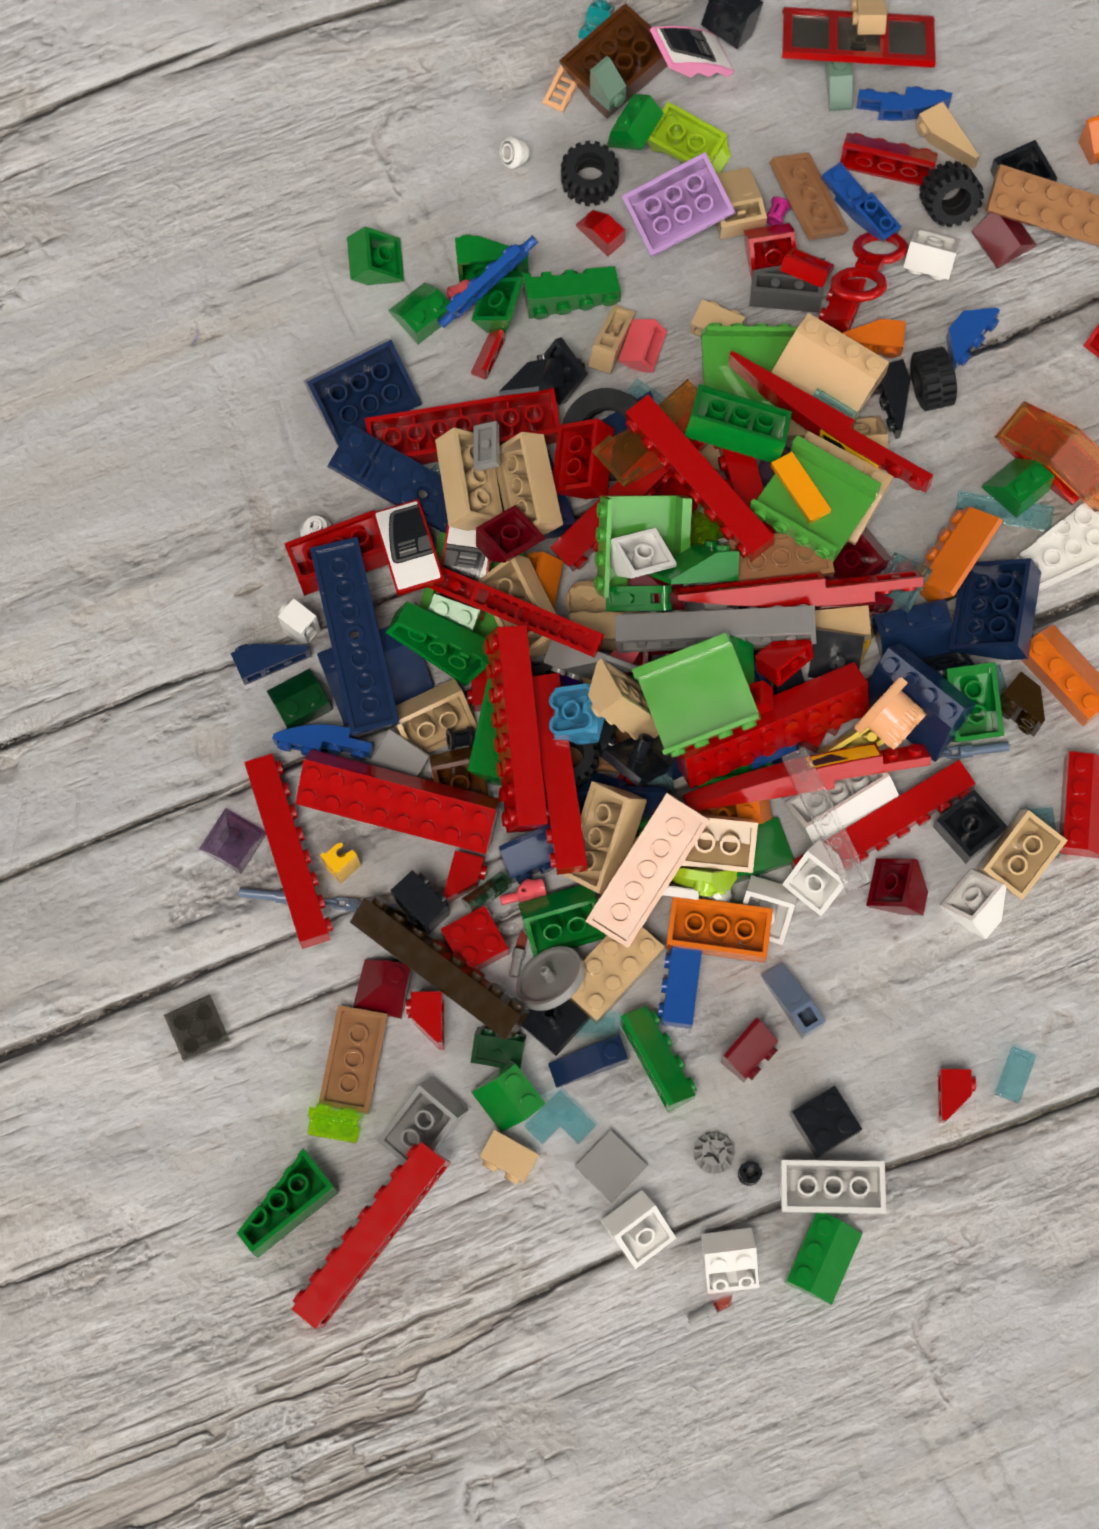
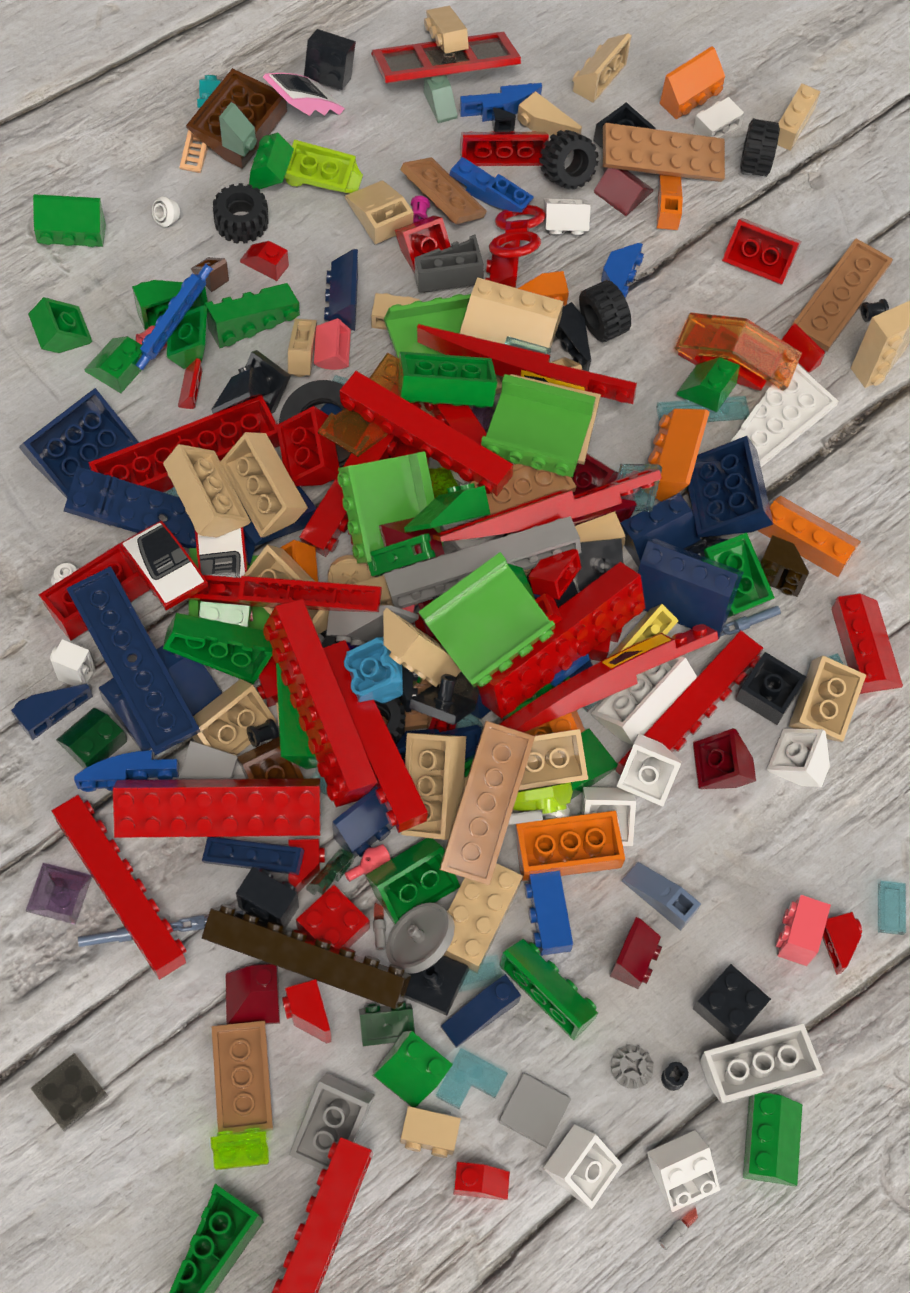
camera: 25 degrees left, 10 degrees down
(342, 865) = (175, 886): yellow hinge -> none
(412, 142) = (68, 220): none -> green slope
(418, 856) = (253, 854): none -> dark blue tile
(486, 446) = (214, 455): light grey hinge -> none
(507, 535) = (257, 529): dark red slope -> none
(542, 1215) = (481, 1181): none -> red slope
(544, 231) = (218, 275): none -> reddish brown slope
(640, 554) = (390, 512): white slope -> none
(670, 288) = (343, 289): none -> dark blue slope
(678, 204) = (329, 217): lavender slope -> none
(800, 487) = (522, 420): light orange tile -> none
(806, 267) = (462, 244): red slope -> none
(826, 820) = (643, 710): clear tile -> none
(892, 716) = (671, 601): light nougat piece -> none
(898, 126) = (502, 120): none -> black slope
(920, 1069) = (803, 930): none -> coral brick
(1025, 87) = (602, 67): none -> tan slope
(1047, 265) = (669, 202): none -> orange slope

